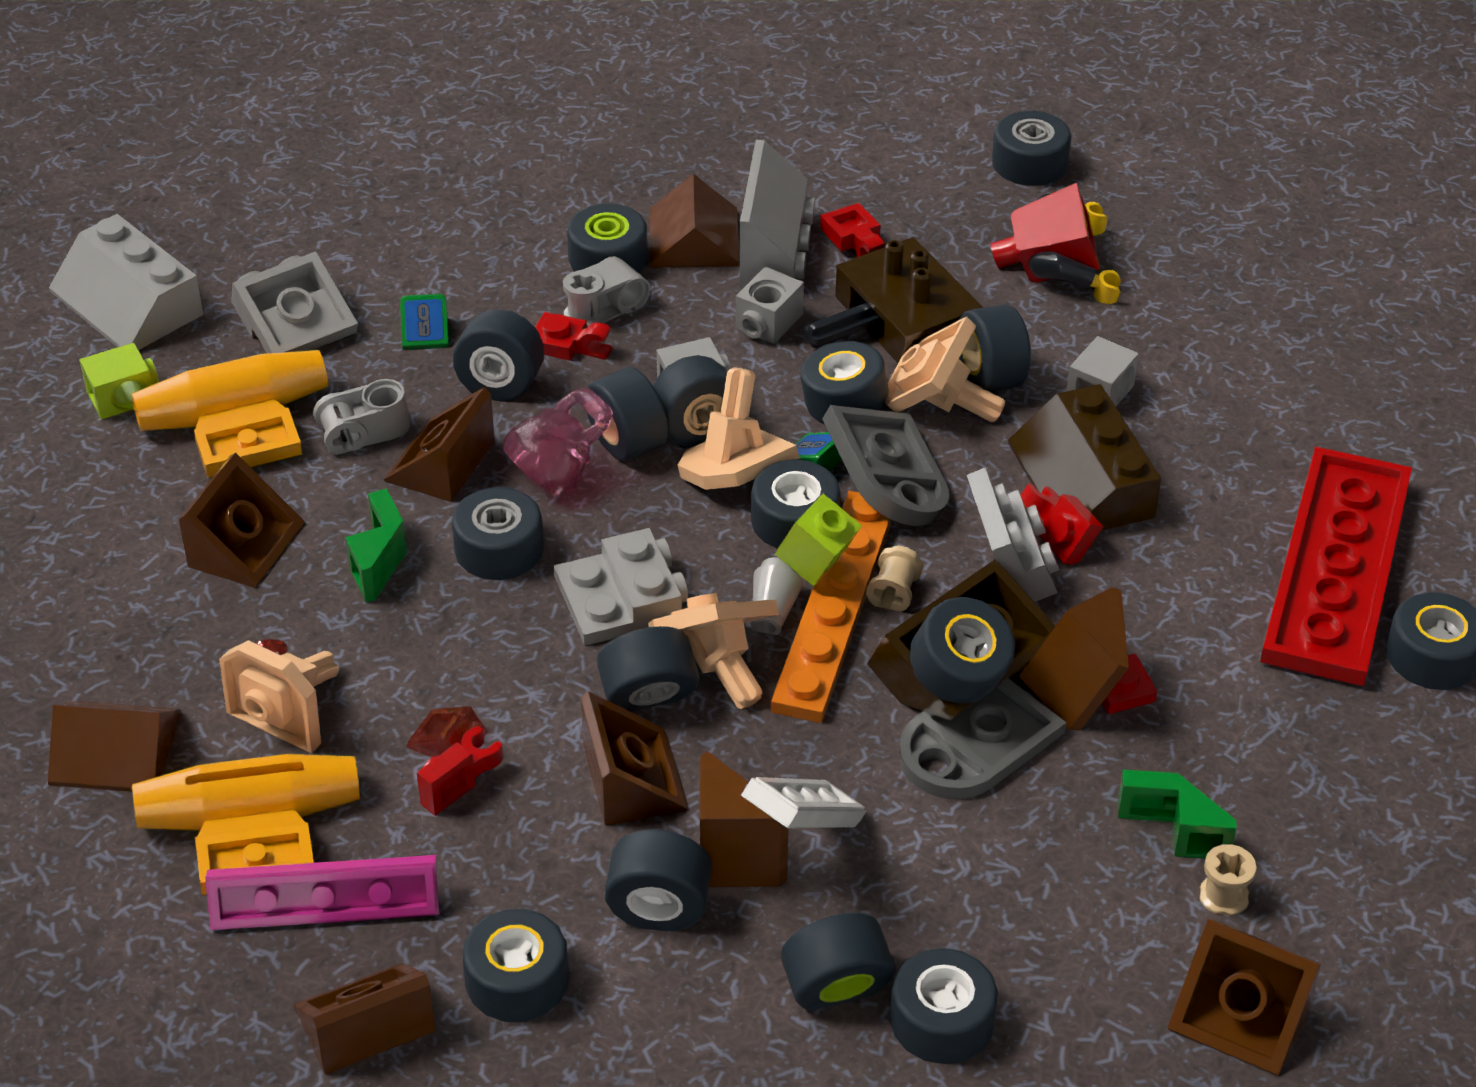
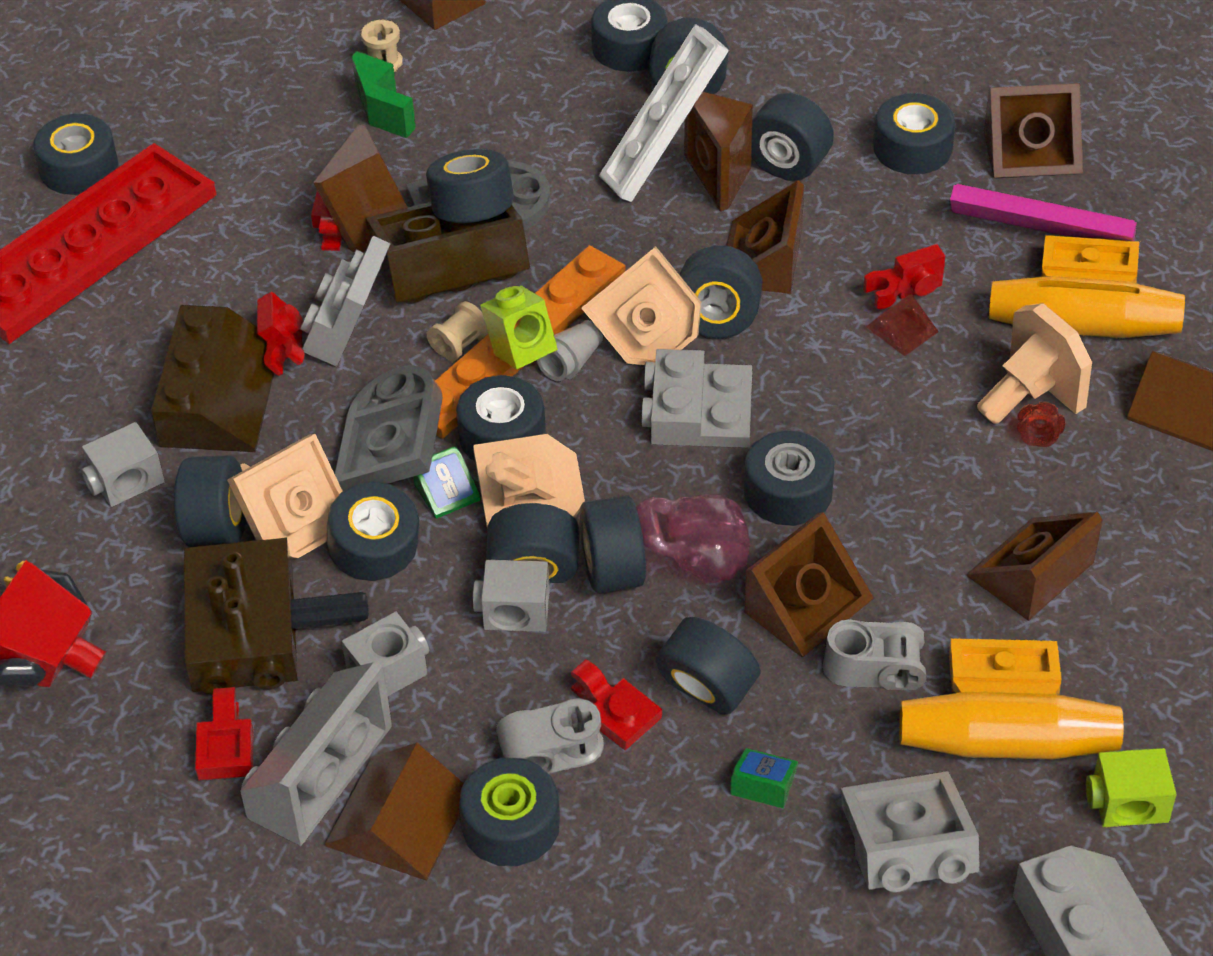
camera: 155 degrees left, 5 degrees up
(378, 551) = (908, 490): green slope -> none

